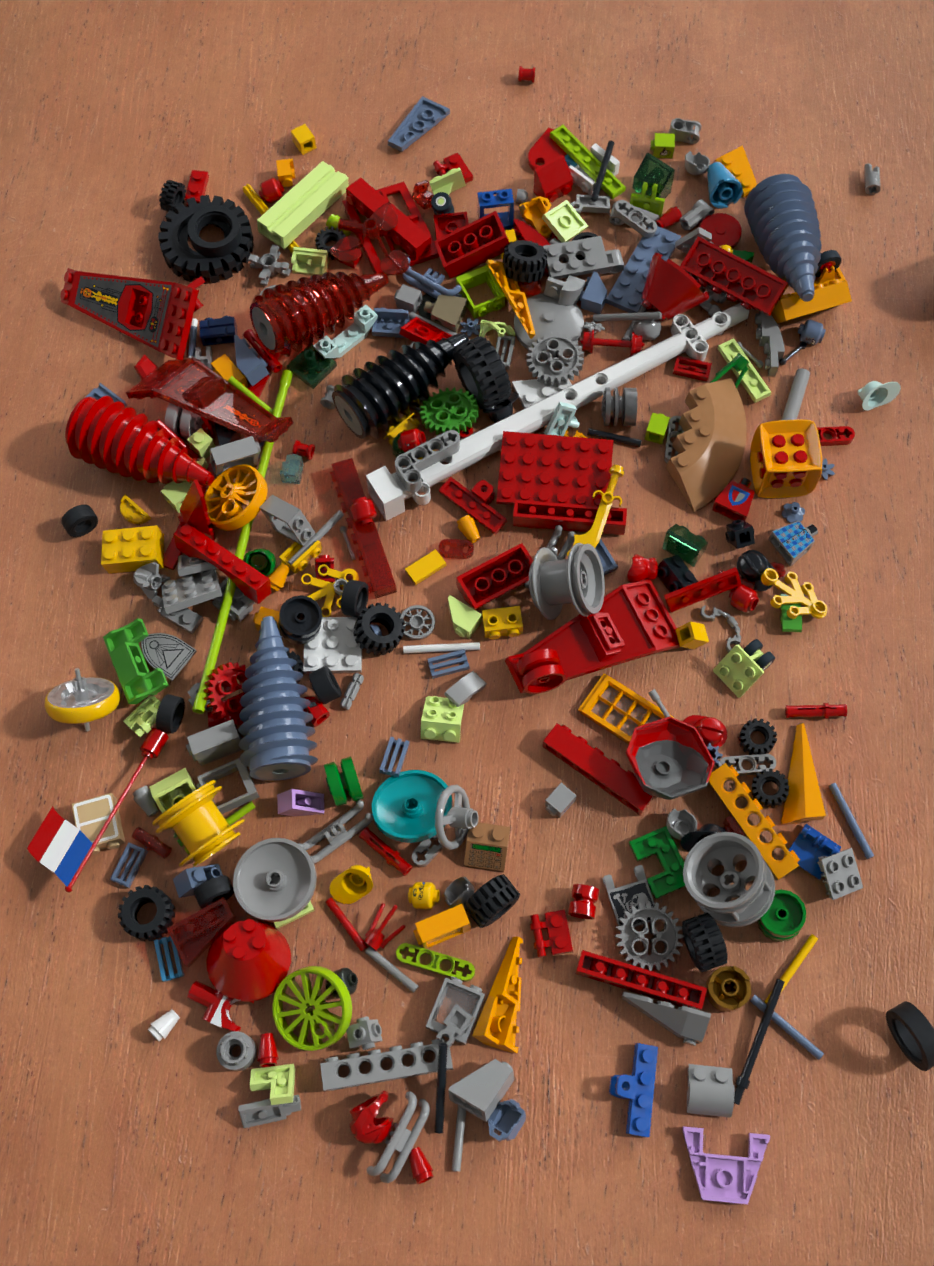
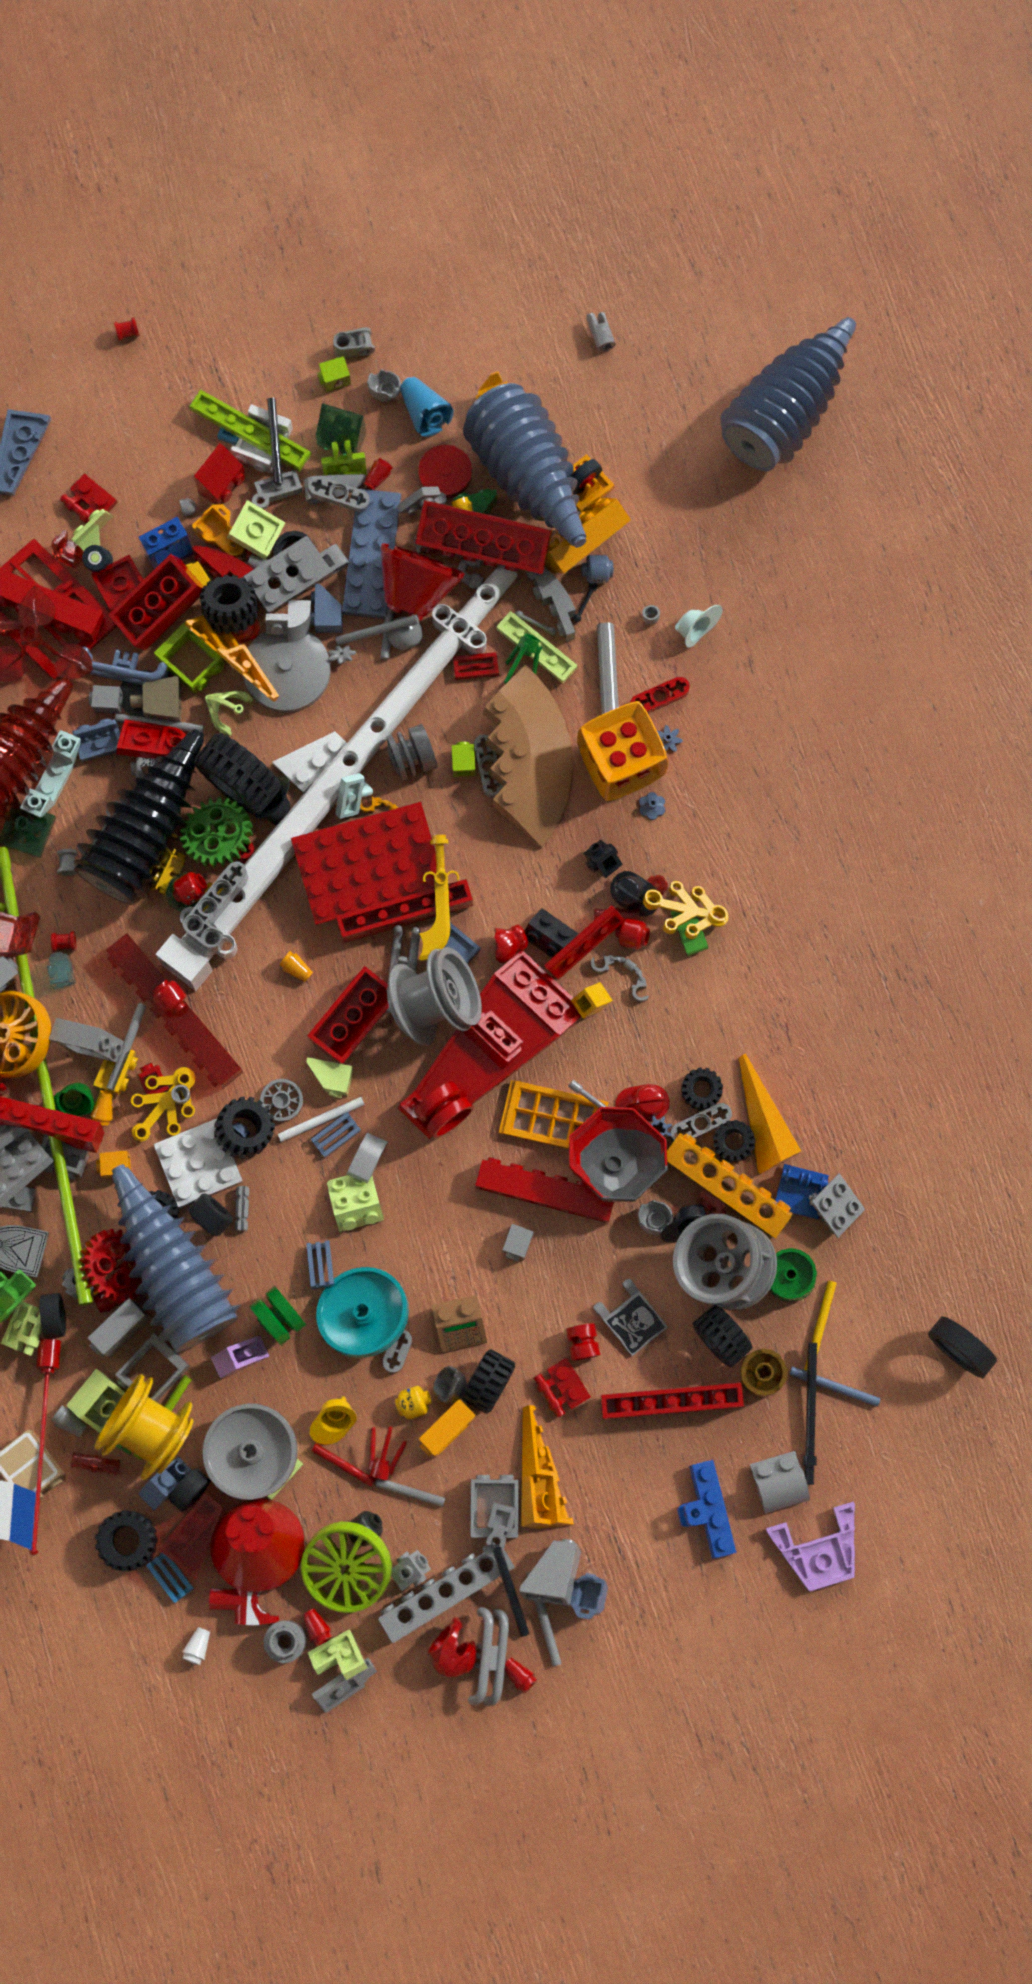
camera: 25 degrees left, 10 degrees up
(121, 881) = (90, 1502): sand blue tile -> none
(300, 619) = (152, 1167): black wheel -> none
(318, 711) = (214, 1247): red rock -> none
(336, 832) = (292, 1373): light grey piece -> none
(343, 529) = (152, 1022): light grey hinge -> none
(354, 598) = (202, 1102): black tyre -> none
(402, 867) = (380, 1381): red pin -> none
(425, 567) = (264, 1031): yellow tile -> none
(435, 962) = (453, 1470): lime beam -> none
(456, 548) = (292, 1000): clear red beam -> none
(459, 817) = (418, 1307): light grey piece -> none
(470, 326) = (195, 710): sand blue plant -> none
(475, 502) = (290, 932): red plate -> none
(502, 622) = (377, 1064): yellow brick -> none
(506, 338) = (251, 743): light grey tile -> none
(544, 150) = (194, 432): red tile -> none
(555, 359) = (319, 698): light grey gear -> none
(617, 438) = (418, 788): black bar -> none
(634, 344) = (399, 662): red piece -> none
(661, 844) = (643, 1247): green plate -> none
(668, 936) = (644, 1358): light grey gear -> none
(682, 1022) = (728, 1425): light grey wedge -> none
(684, 544) = (546, 893): clear green slope -> none
(696, 215) = (411, 454): light grey piece -> none
(735, 500) = (583, 817): red torso -> none
(739, 166) = (437, 374): light orange wing -> none
(743, 667) = (656, 1020): yellowish green plate -> none
(793, 540) = (664, 842): torso -> none
(816, 710) = (755, 1033): red pin -> none
(841, 377) = (651, 614): none -> light grey hinge
(851, 821) = (829, 1141): sand blue bar -> none

